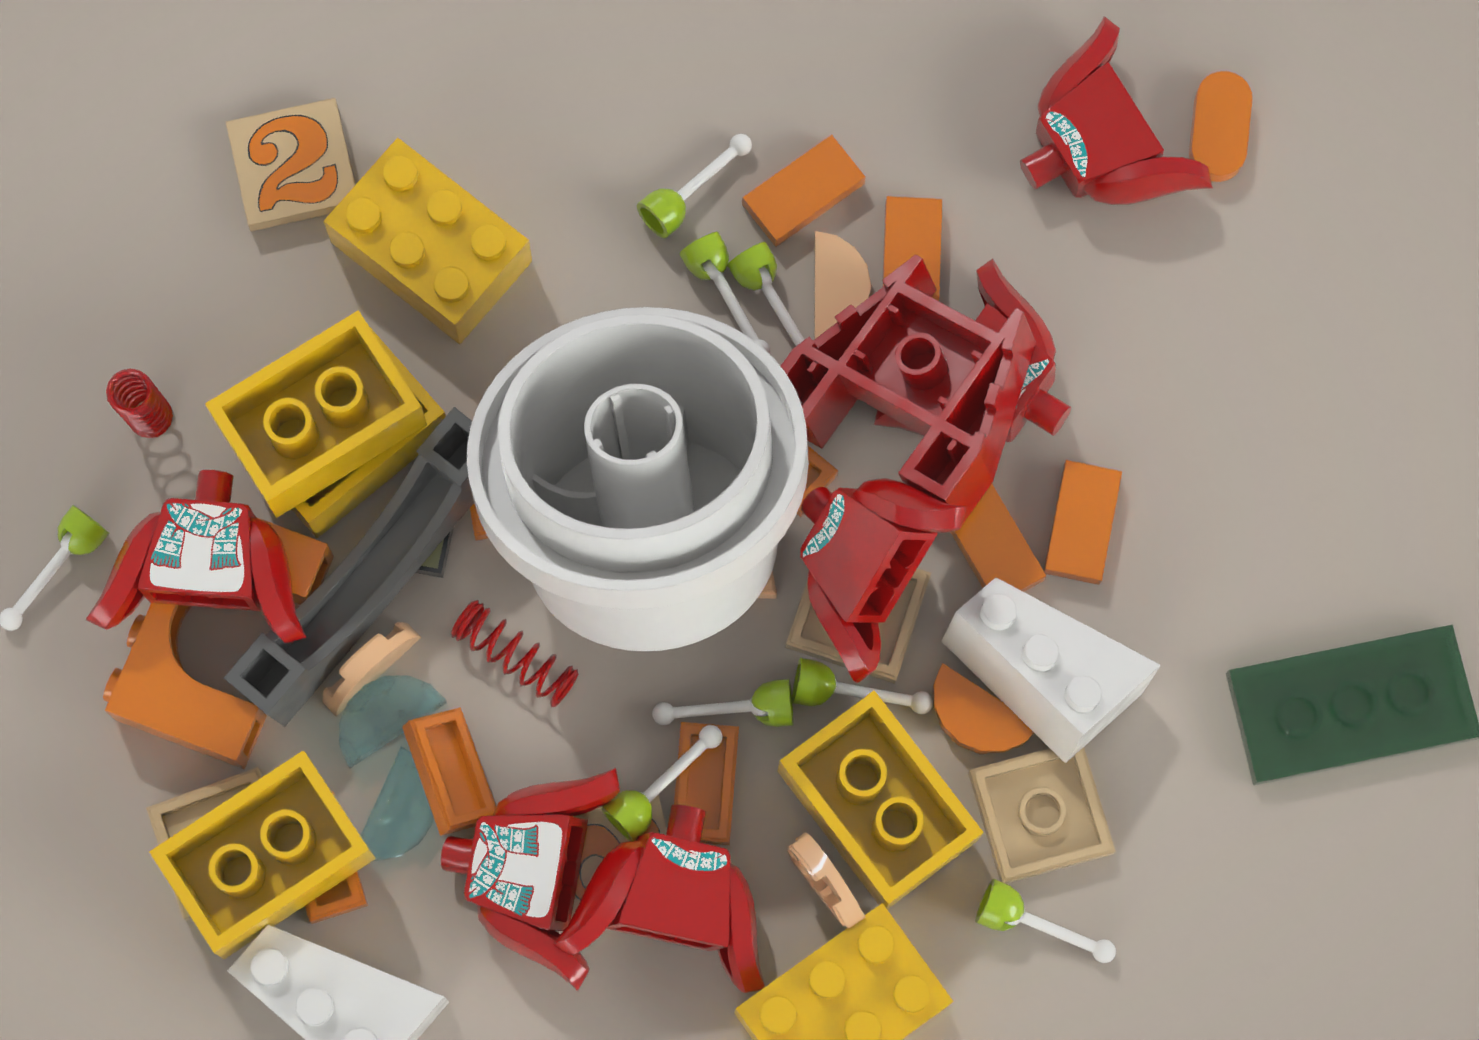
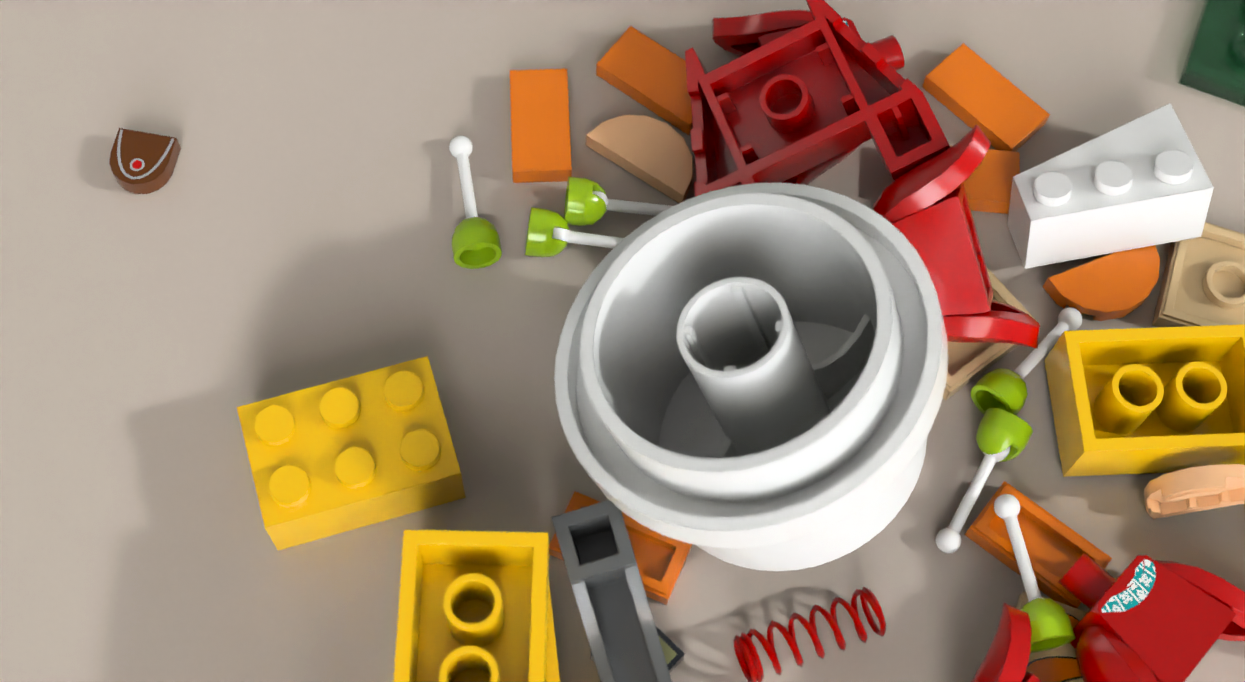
camera: 55 degrees left, 10 degrees down
(291, 163) = (175, 534): tile -> none

